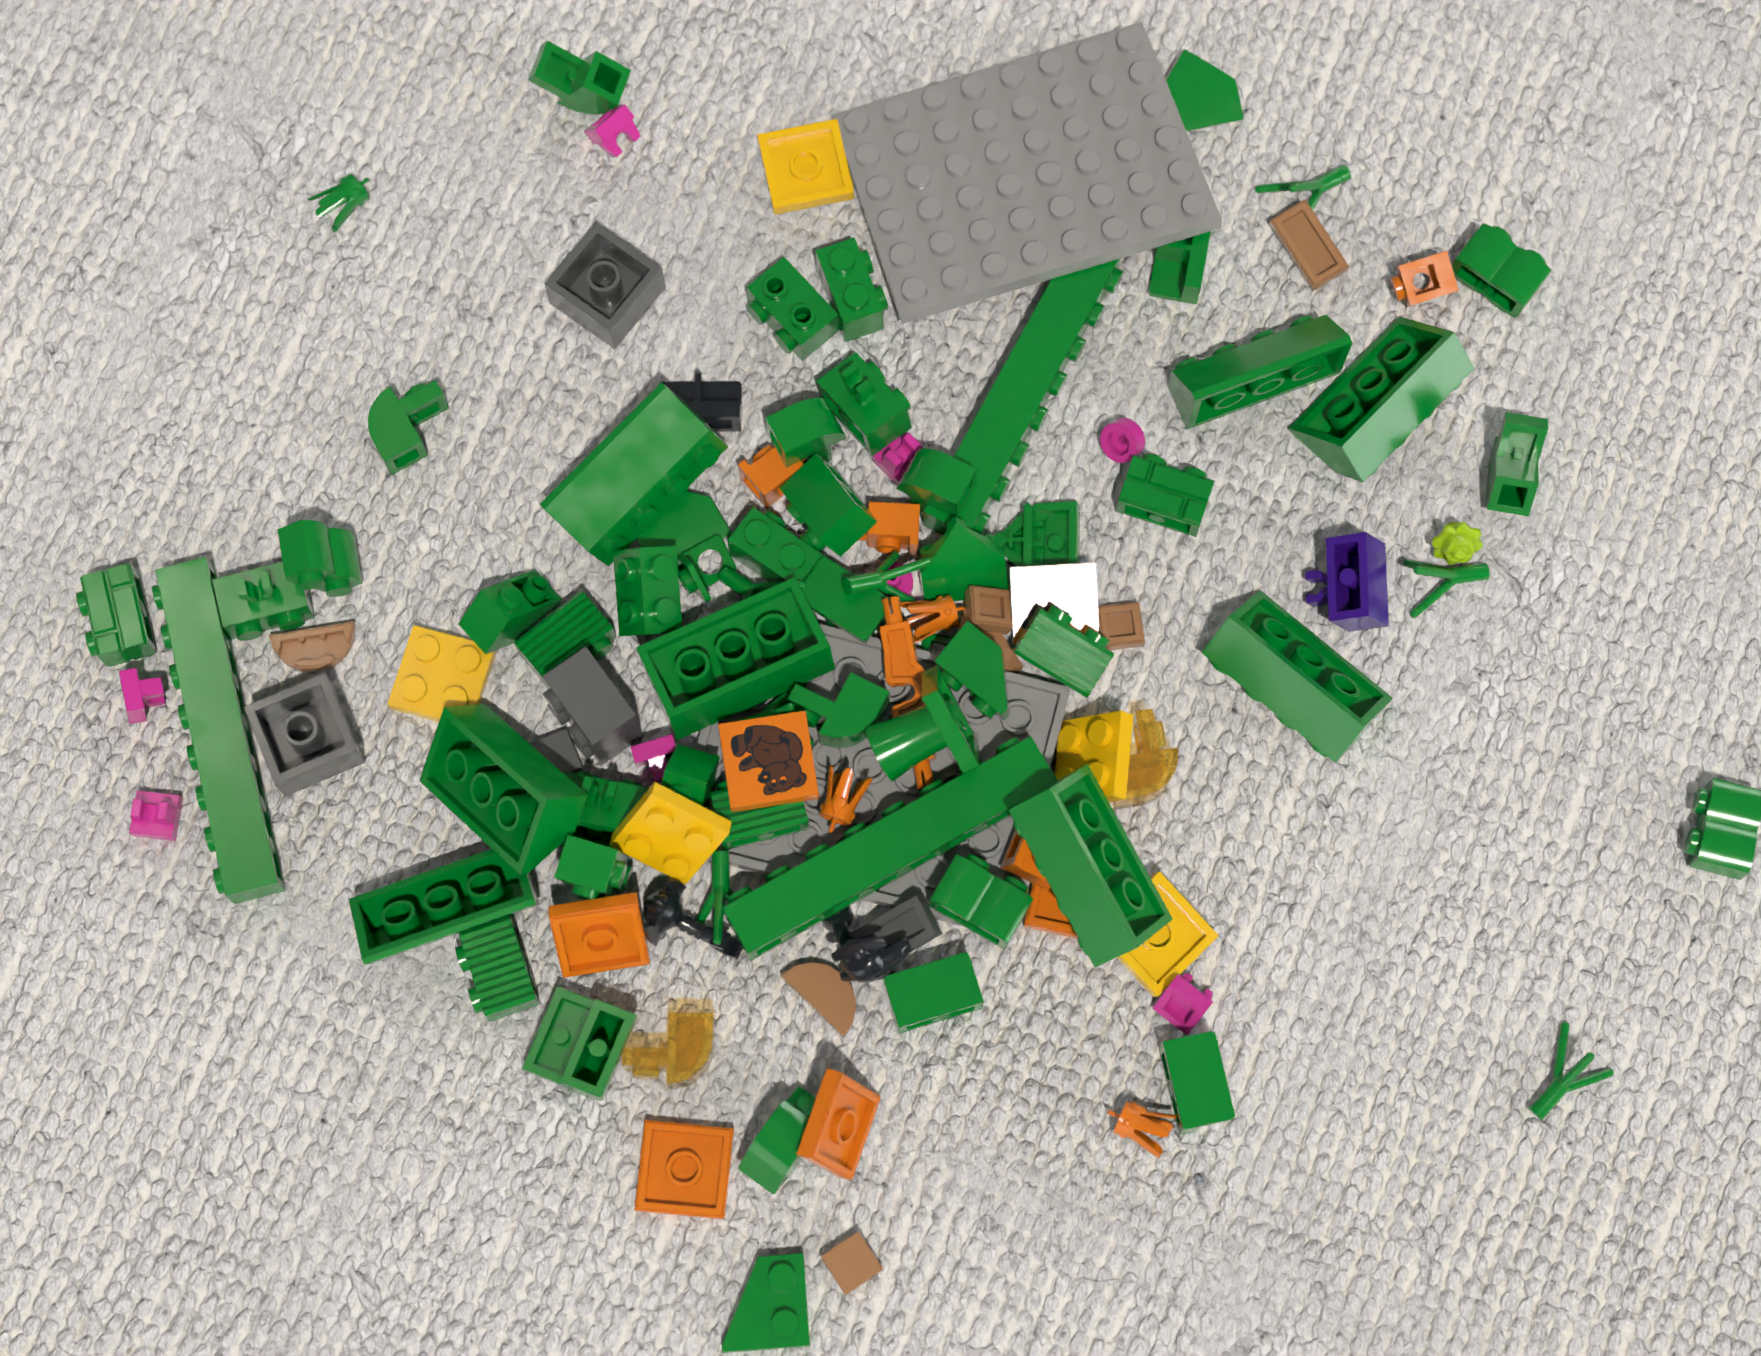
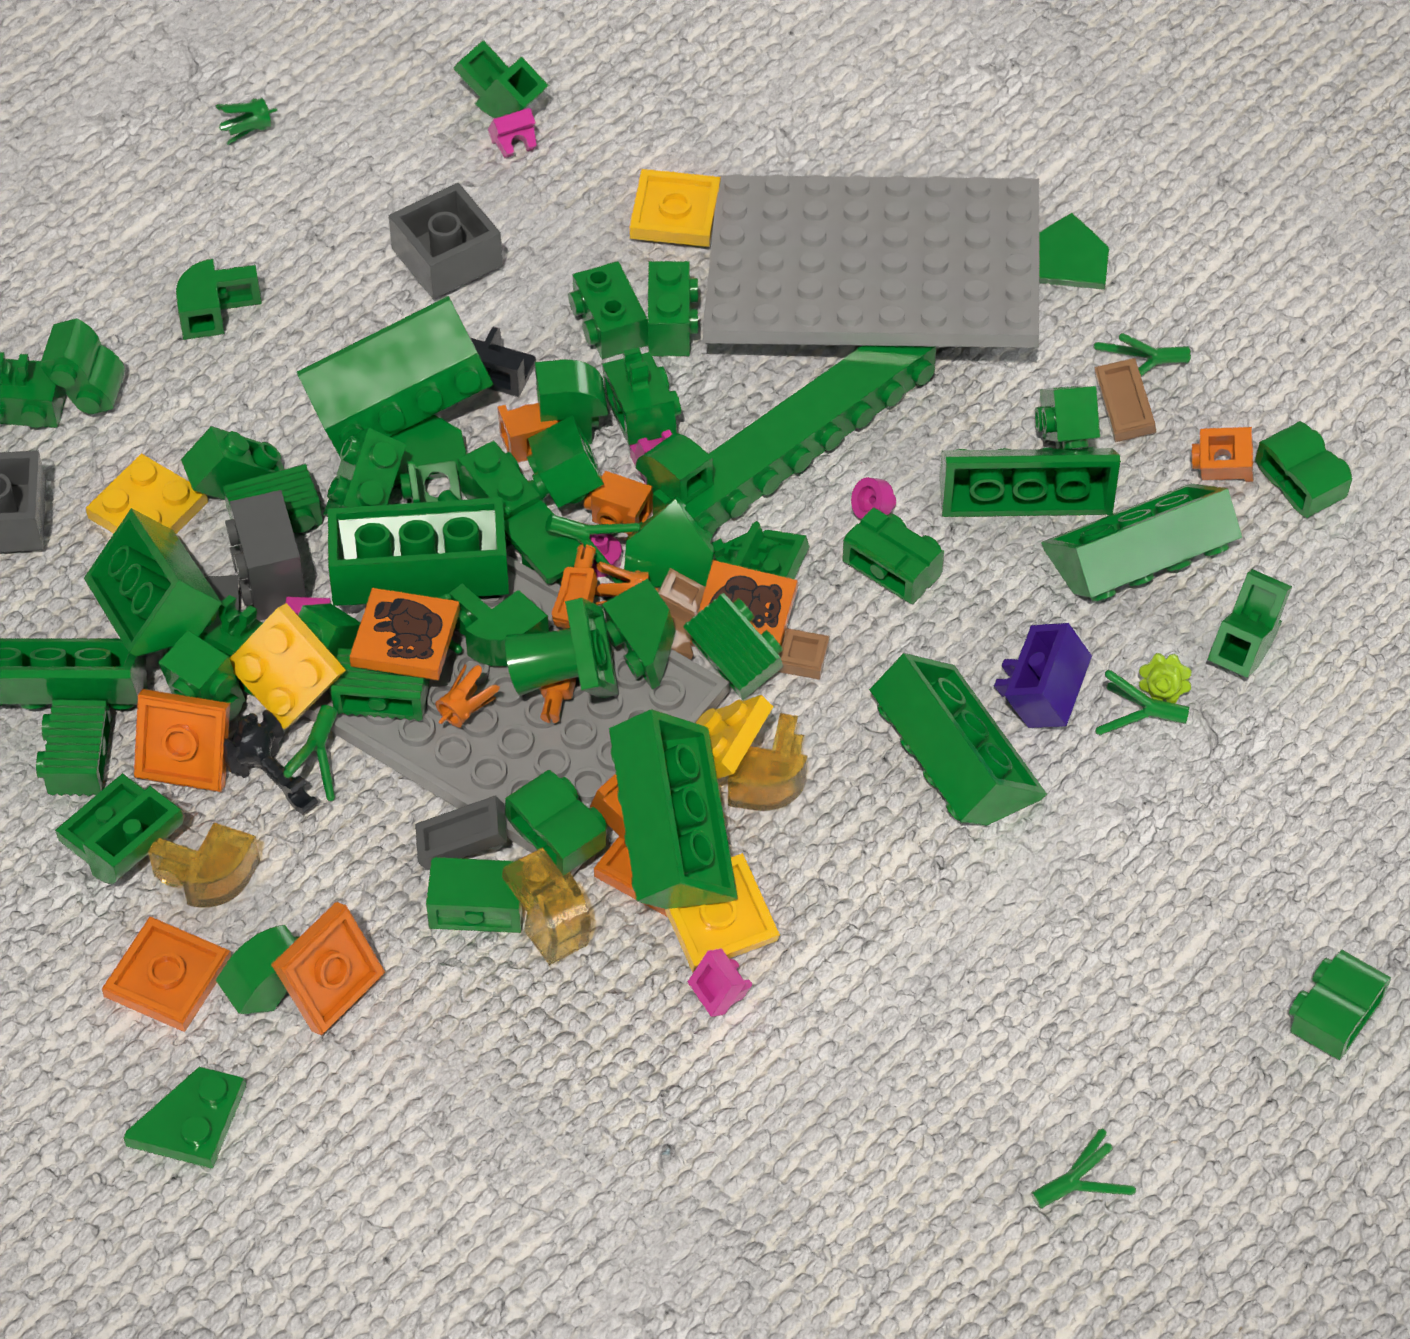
camera: 20 degrees right, 20 degrees down
(314, 648) = (55, 447): medium nougat tile -> none
(825, 993) = (374, 866): medium nougat tile -> none
(851, 1263) = (287, 1105): medium nougat tile -> none
(864, 957) = (419, 834): black piece -> none
(887, 849) = (468, 752): green brick -> none
(1012, 986) = (554, 904): none -> clear yellow brick
(1137, 1118) = (623, 1066): orange piece -> none
(1180, 269) = (996, 378): green panel -> none
(1196, 1081) = (698, 1049): green panel -> none
(1274, 291) = (1068, 416): none -> green brick

